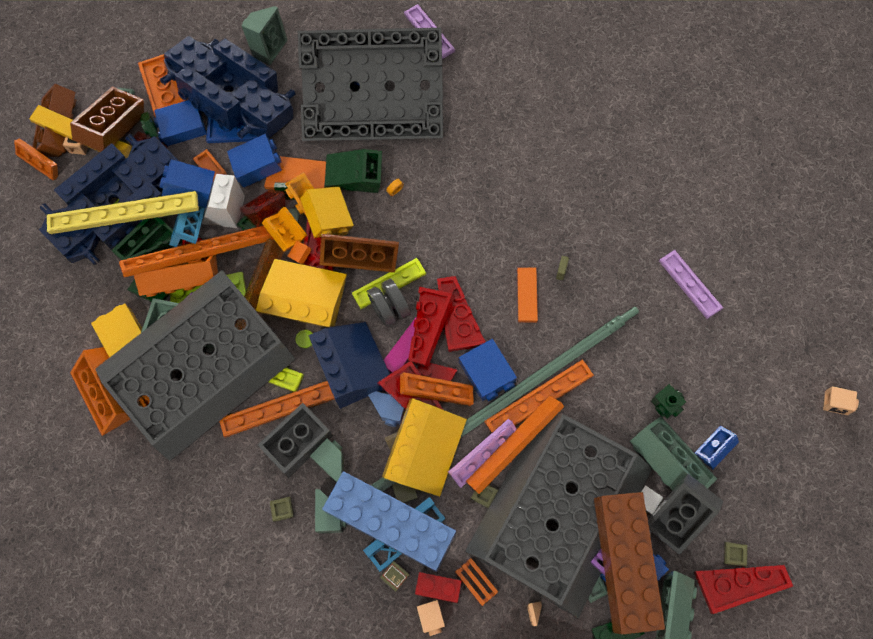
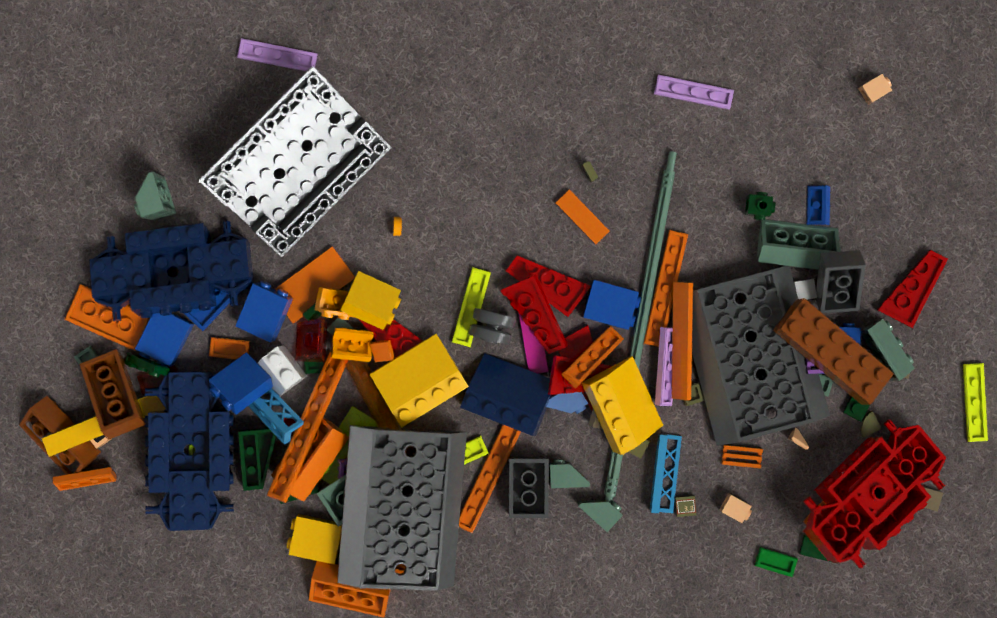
camera: 50 degrees left, 20 degrees up
(122, 212) = (222, 456): light yellow tile -> none
(281, 509) = (565, 539): olive tile -> none
(303, 339) = (452, 409): lime piece -> none
(354, 170) = (353, 245): dark green slope -> none
(358, 253) = (430, 309): dark orange slope -> none
(389, 521) = (653, 478): medium blue brick -> none
(438, 587) = (723, 485): red brick -> none
(735, 554) = (893, 271): olive tile -> none

